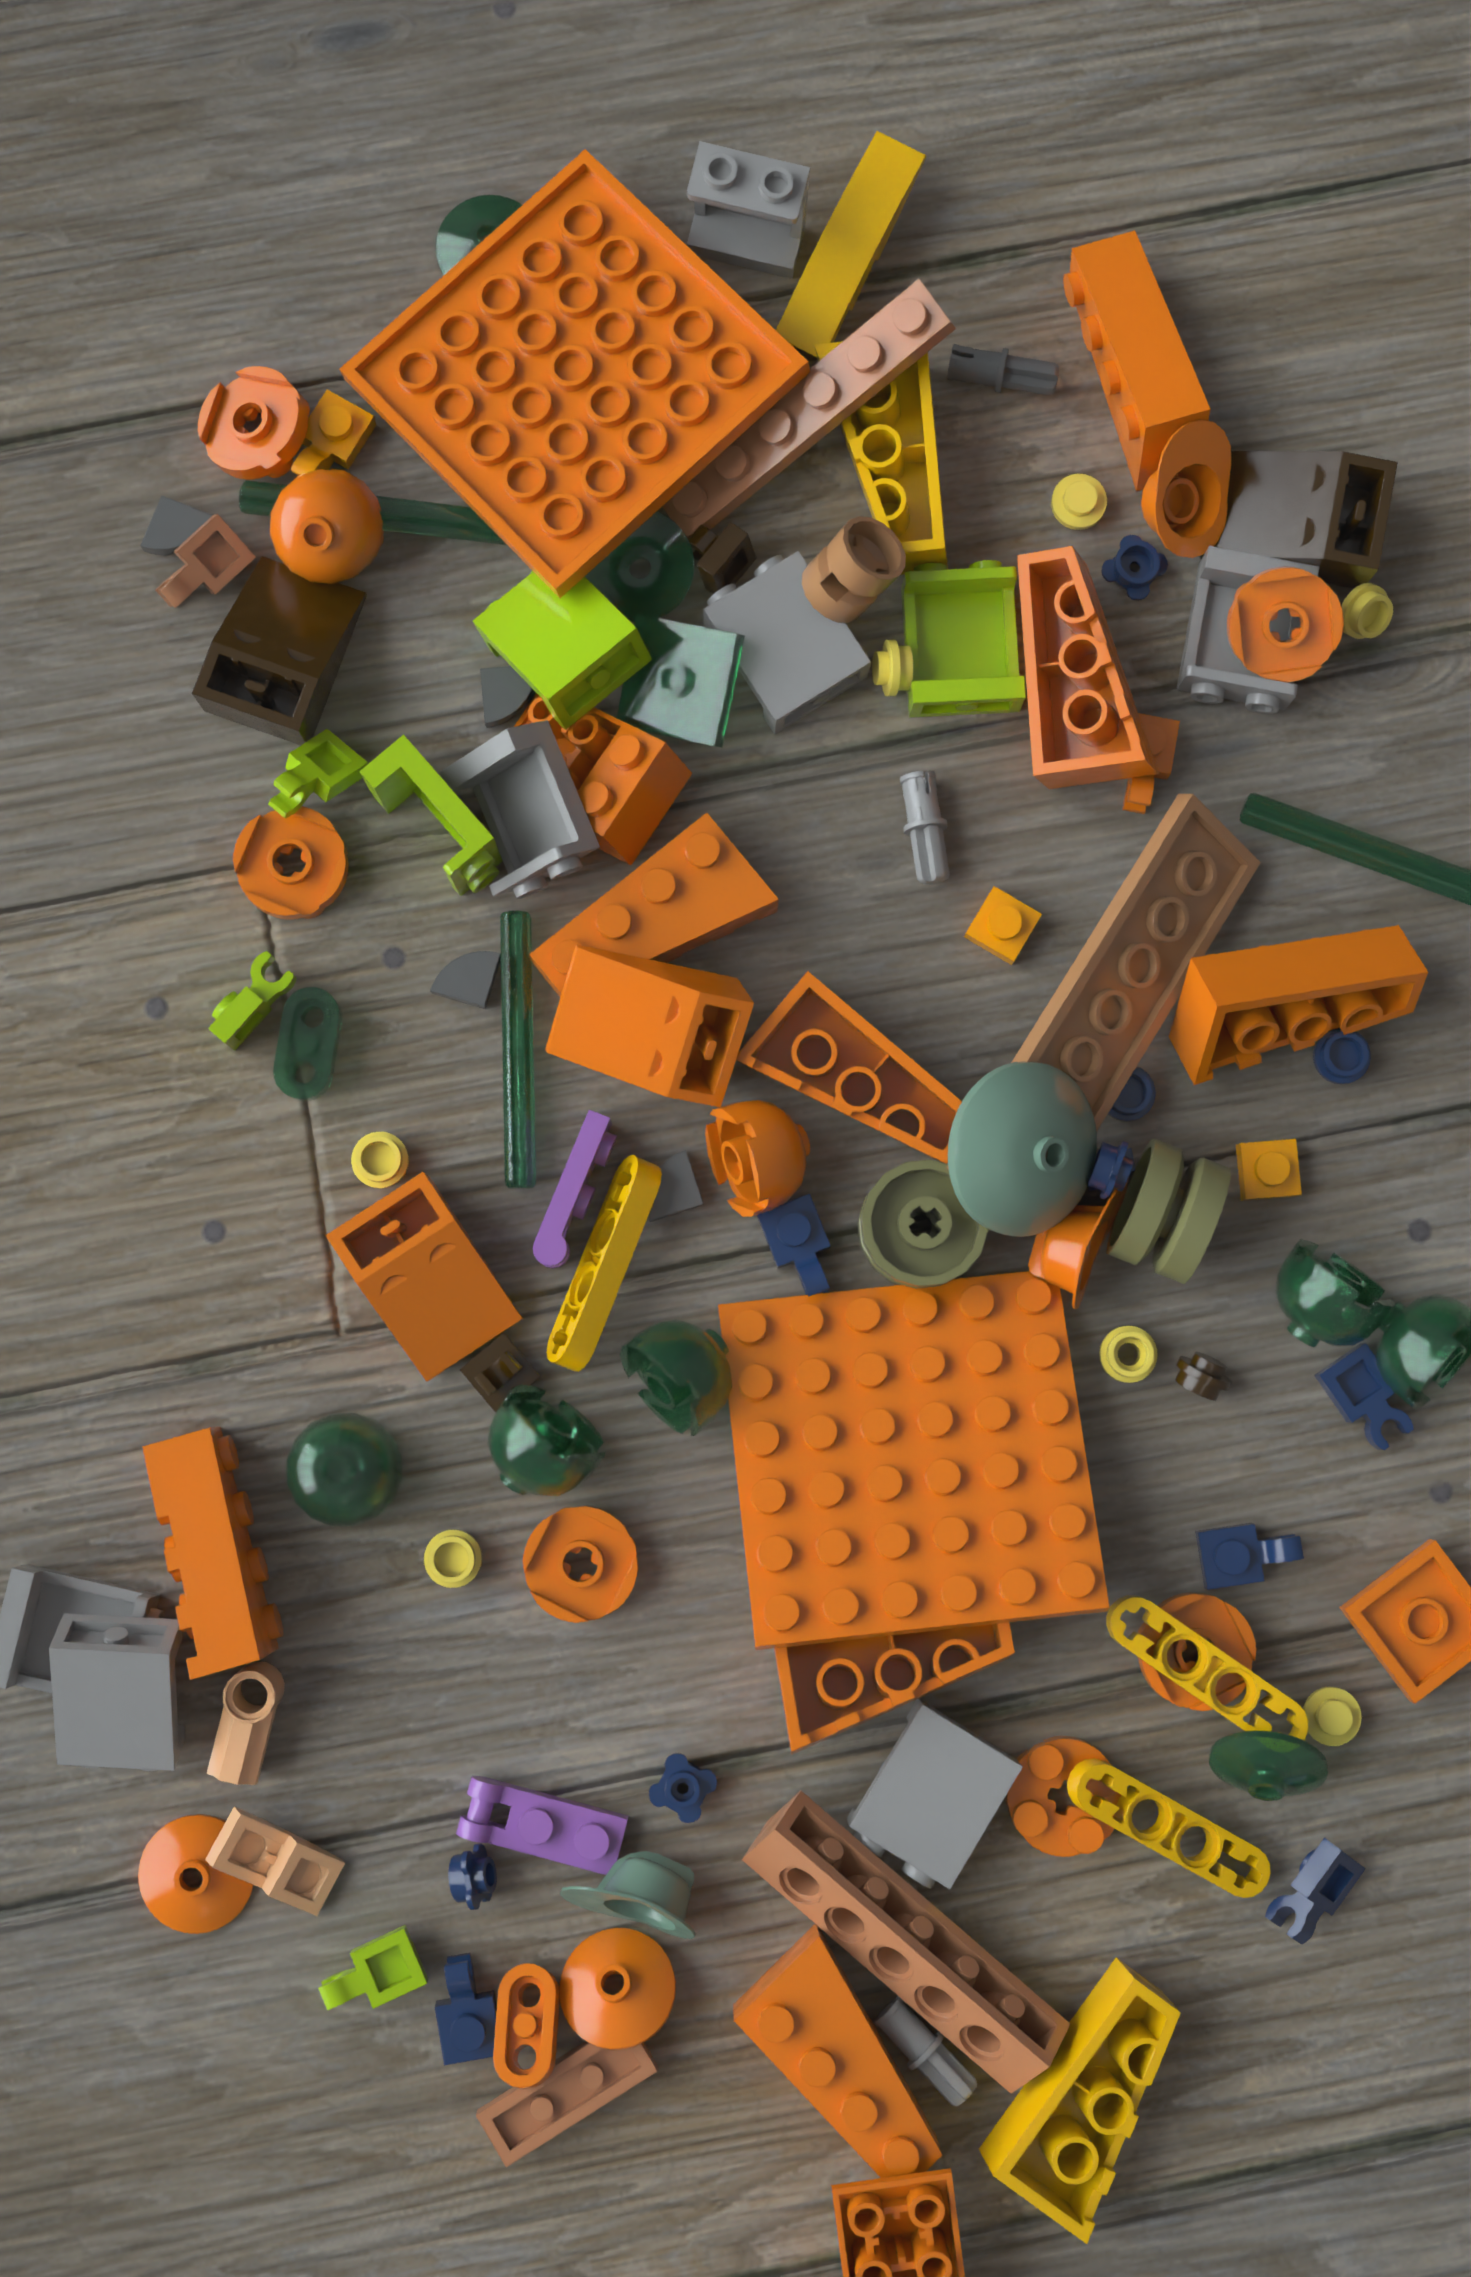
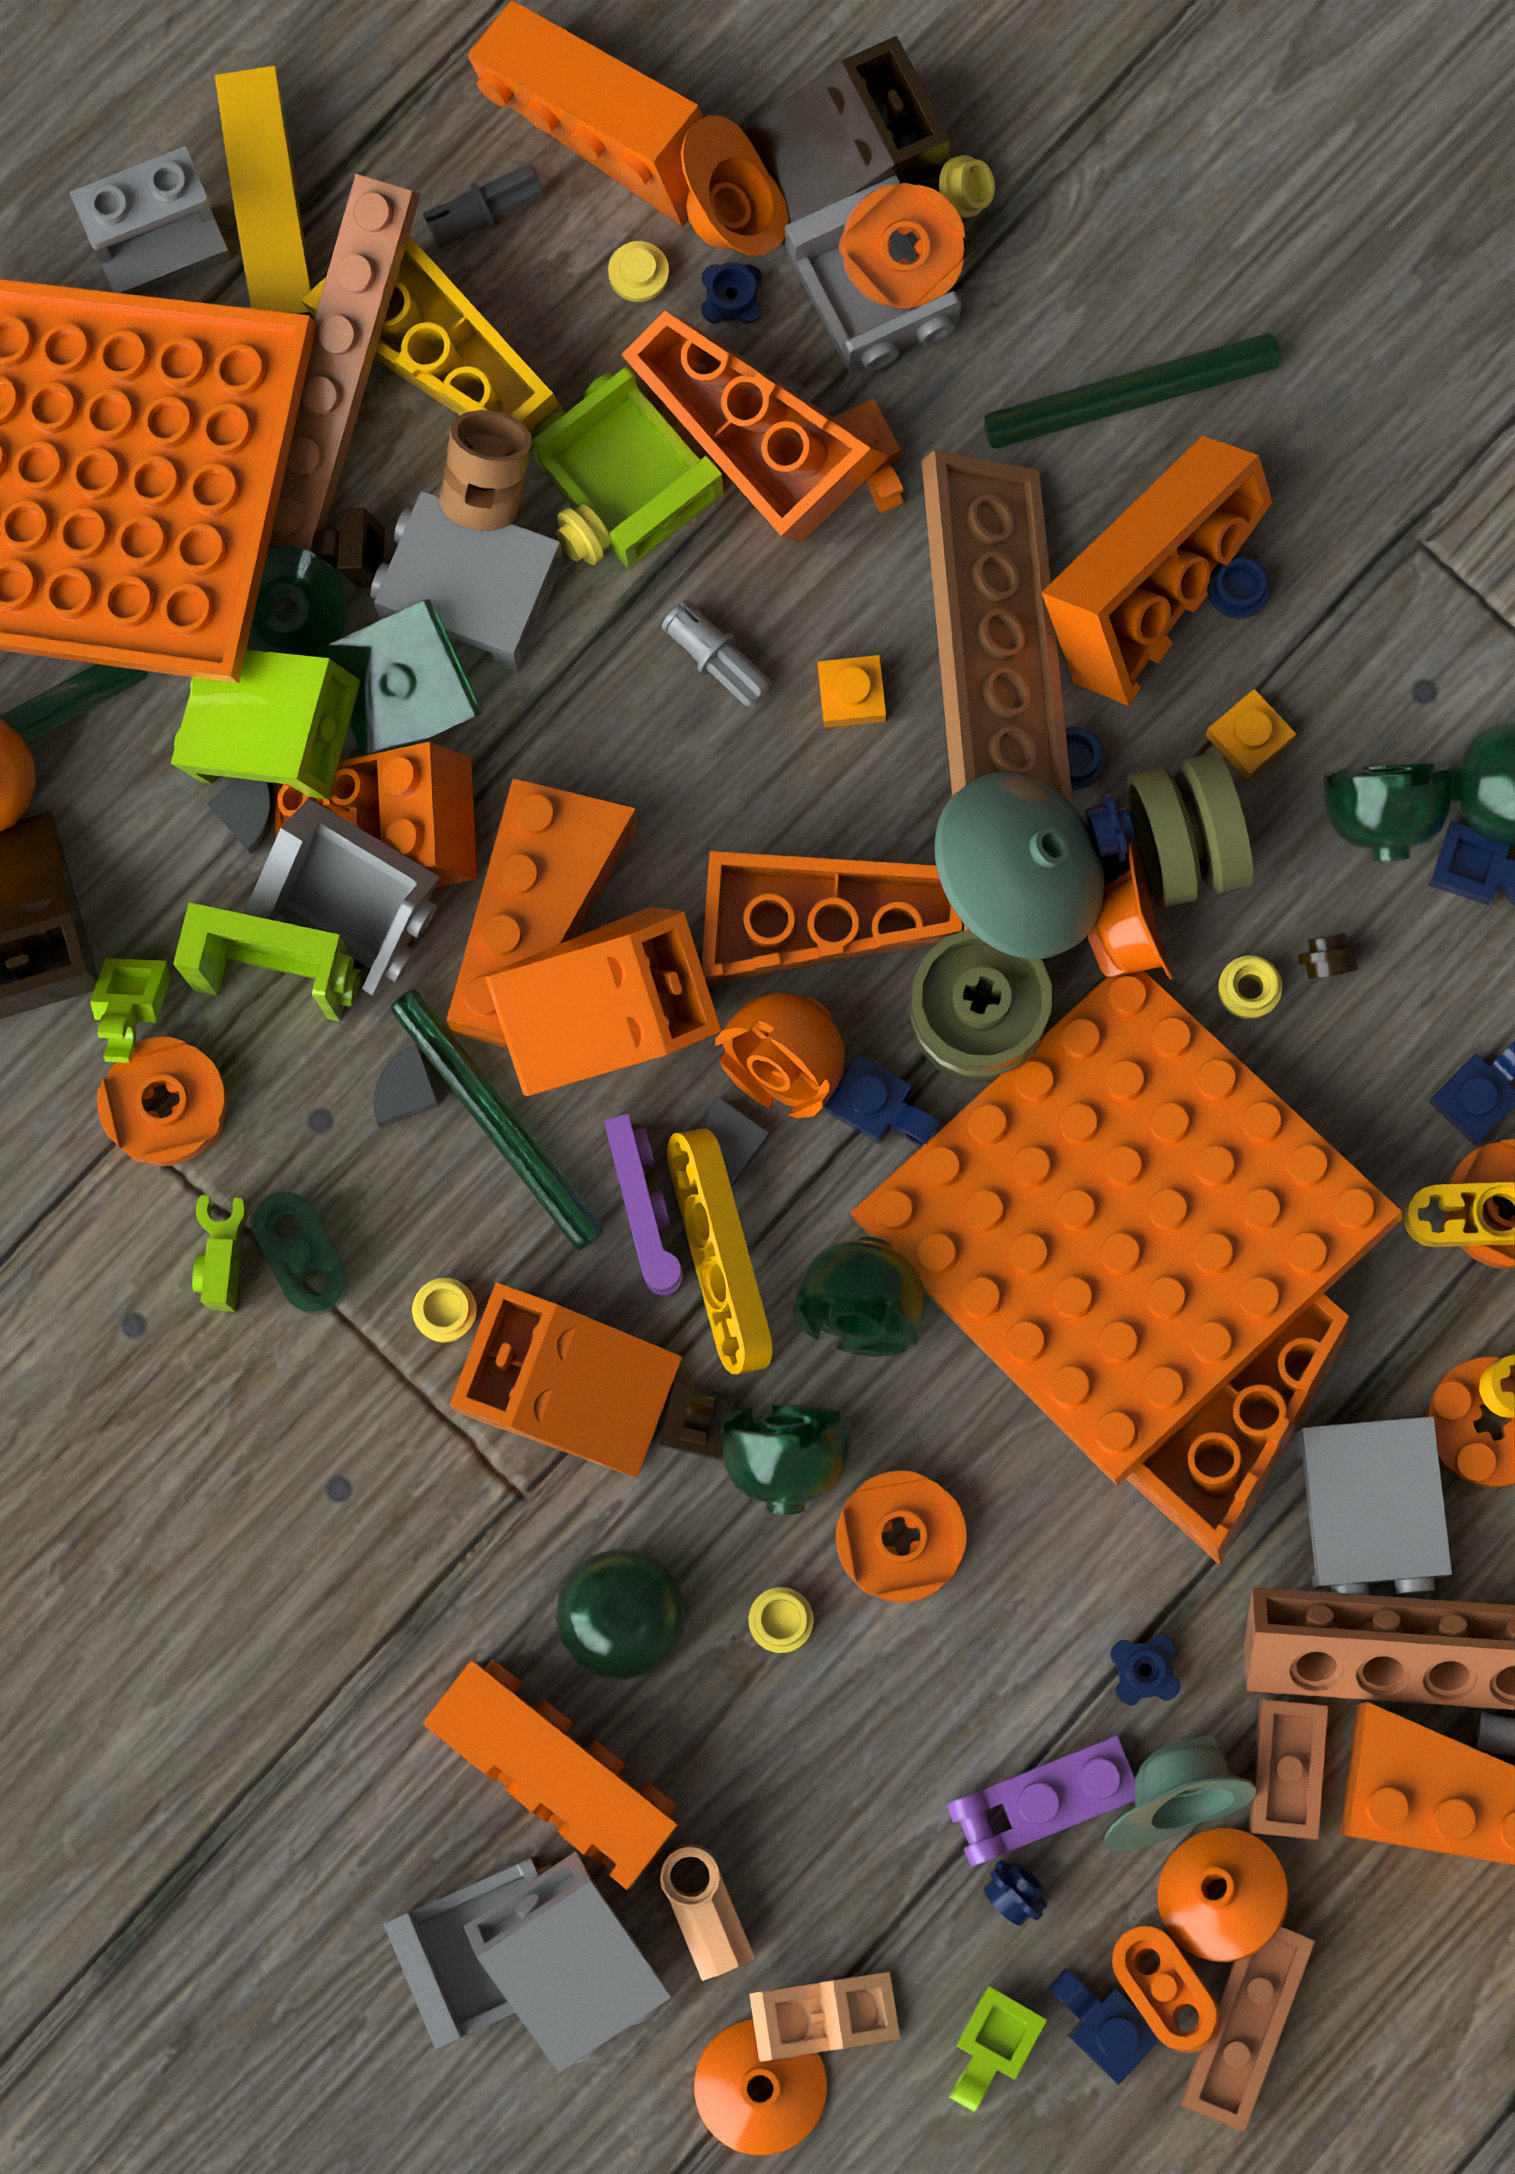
camera: 25 degrees left, 5 degrees down
(731, 1935) = (1288, 1769): none -> nougat plate

